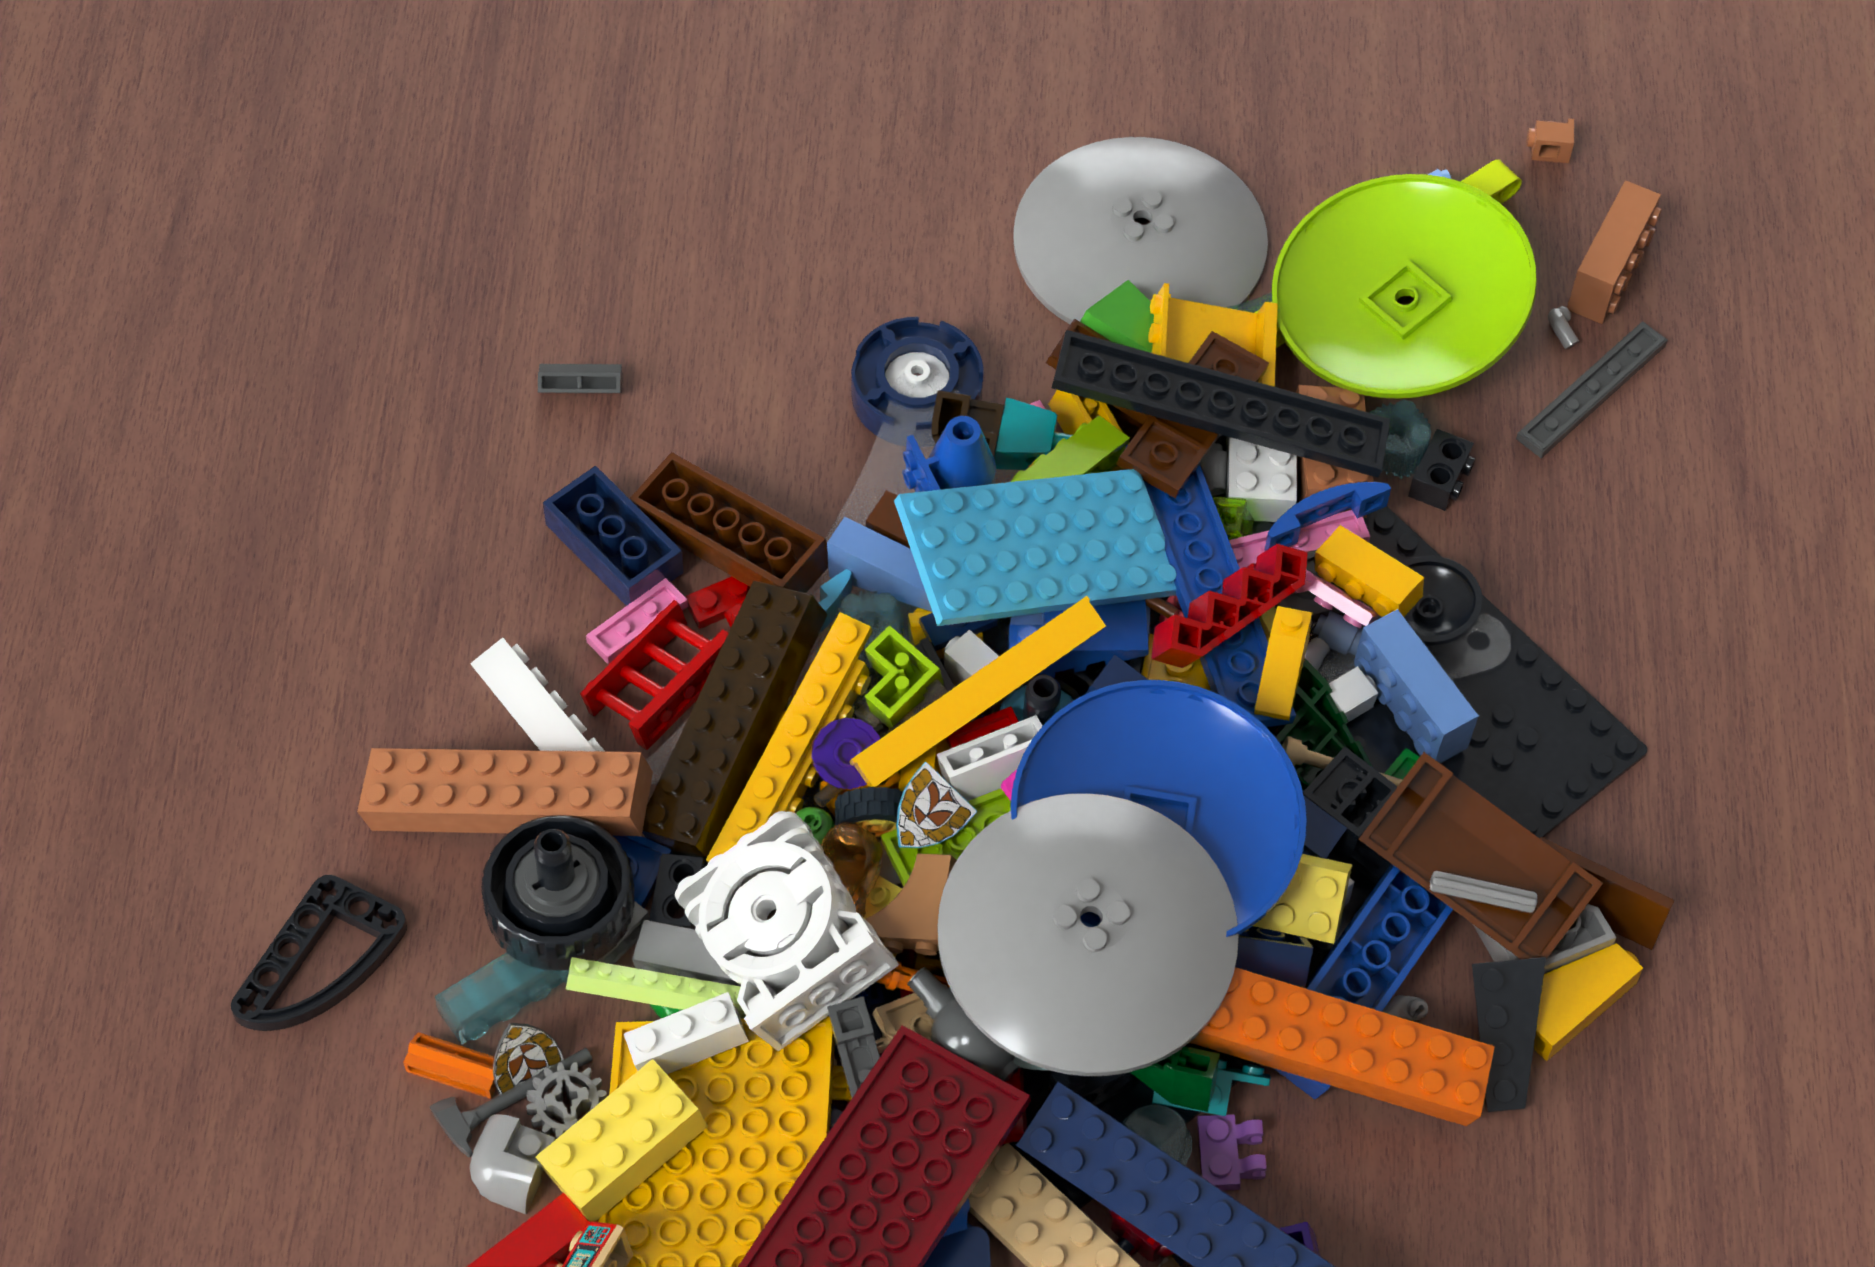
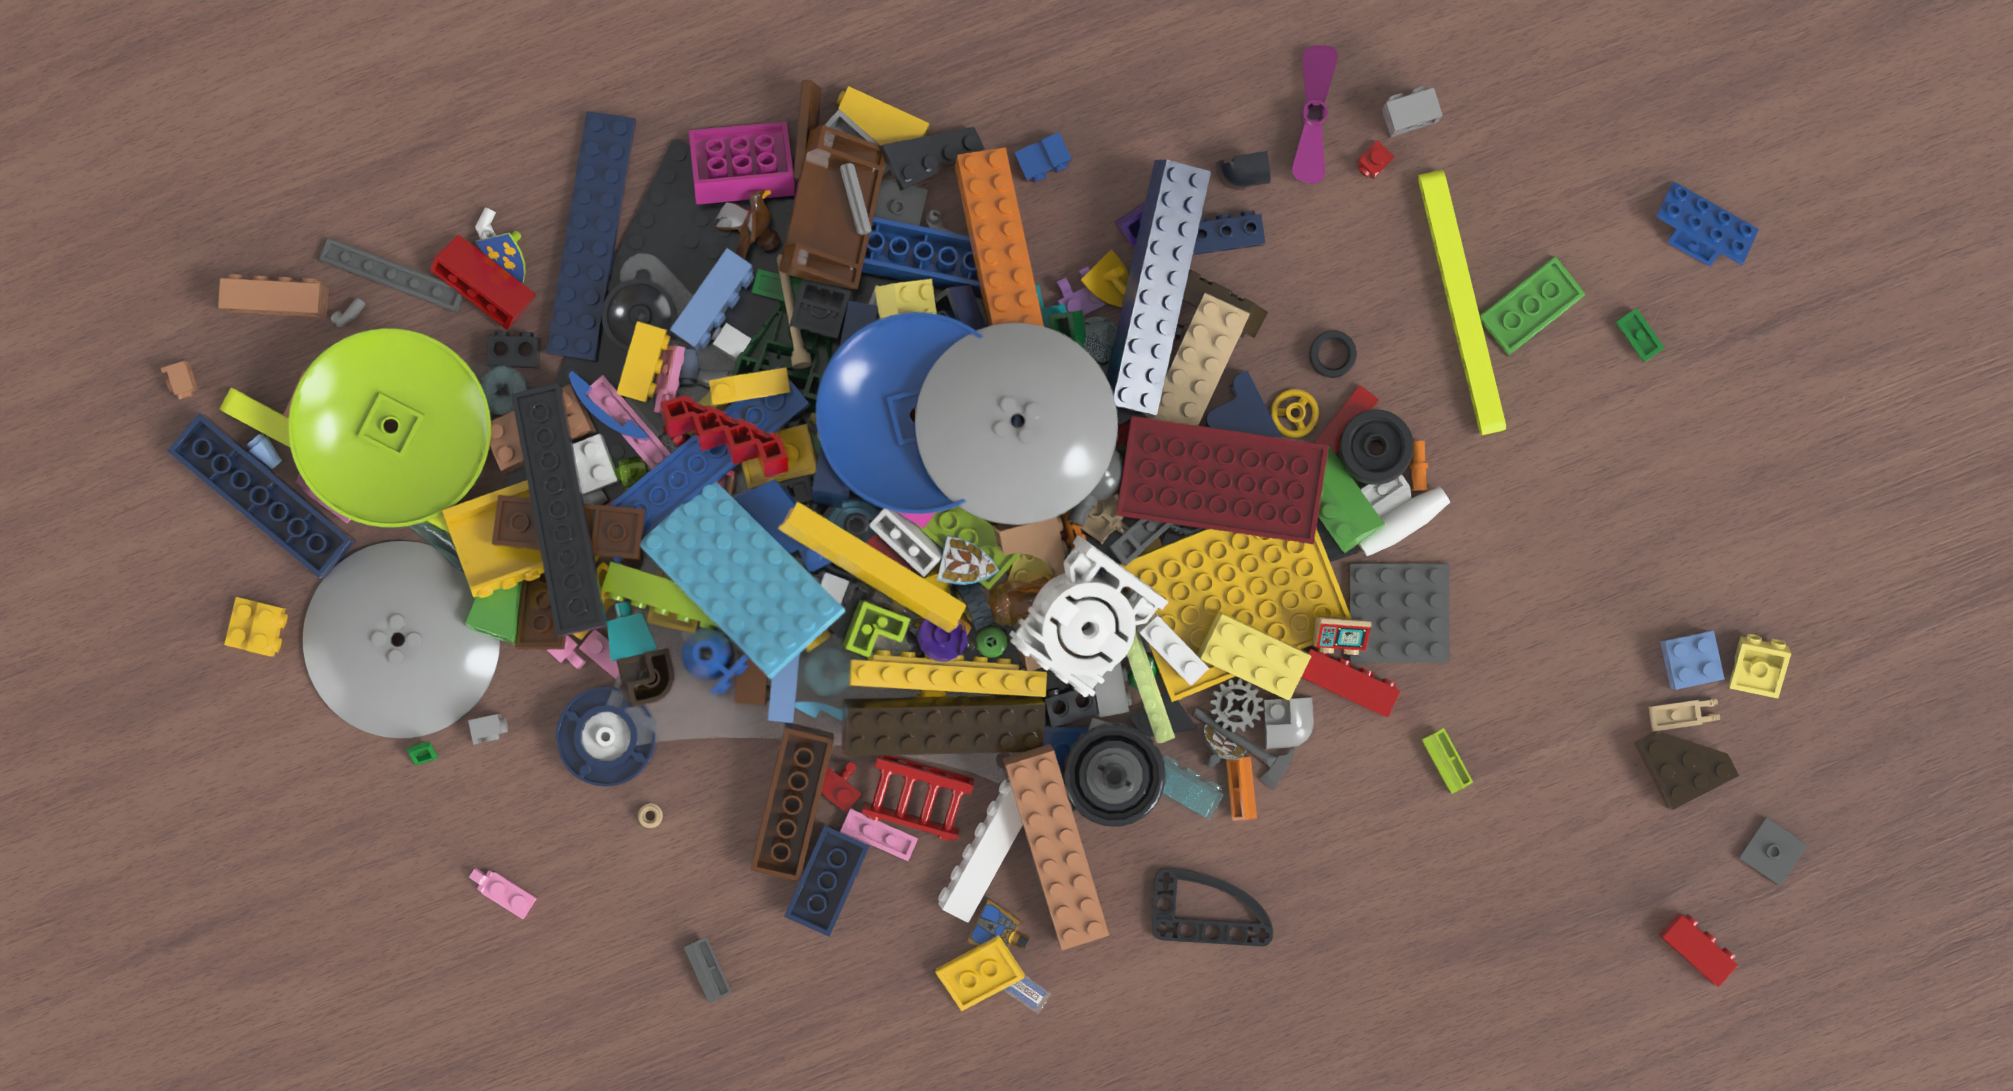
camera: 110 degrees left, 30 degrees up
(350, 704) = (1029, 994): none -> clear tile
(400, 654) = (980, 973): none -> yellow tile
(444, 700) = (997, 921): none -> torso
(596, 1020) = (1177, 716): none -> black wing
(790, 223) = (504, 892): none -> bright pink hinge
(797, 388) = (650, 823): none -> tan plate
(991, 273) = (487, 728): none -> light grey brick
(996, 205) = (422, 752): none -> green slope
(1037, 389) = (569, 653): none -> bright pink plate
(1224, 109) = (256, 627): none -> yellow plate
(1242, 1179) = (1108, 280): none -> yellow shield
(1417, 141) = (261, 495): none -> dark blue brick
(1445, 974) = (898, 205): none -> dark grey plate
(1445, 1178) = (1043, 158): none -> blue brick
(1502, 771) = (750, 222): none -> reddish brown animal
(1544, 470) = (482, 282): none -> red brick
(1564, 610) = (591, 236): none -> dark blue plate
(1571, 509) = (505, 252): none -> blue shield
(1588, 793) = (740, 160): none -> dark pink slope
(1614, 502) = (484, 226): none -> white arm

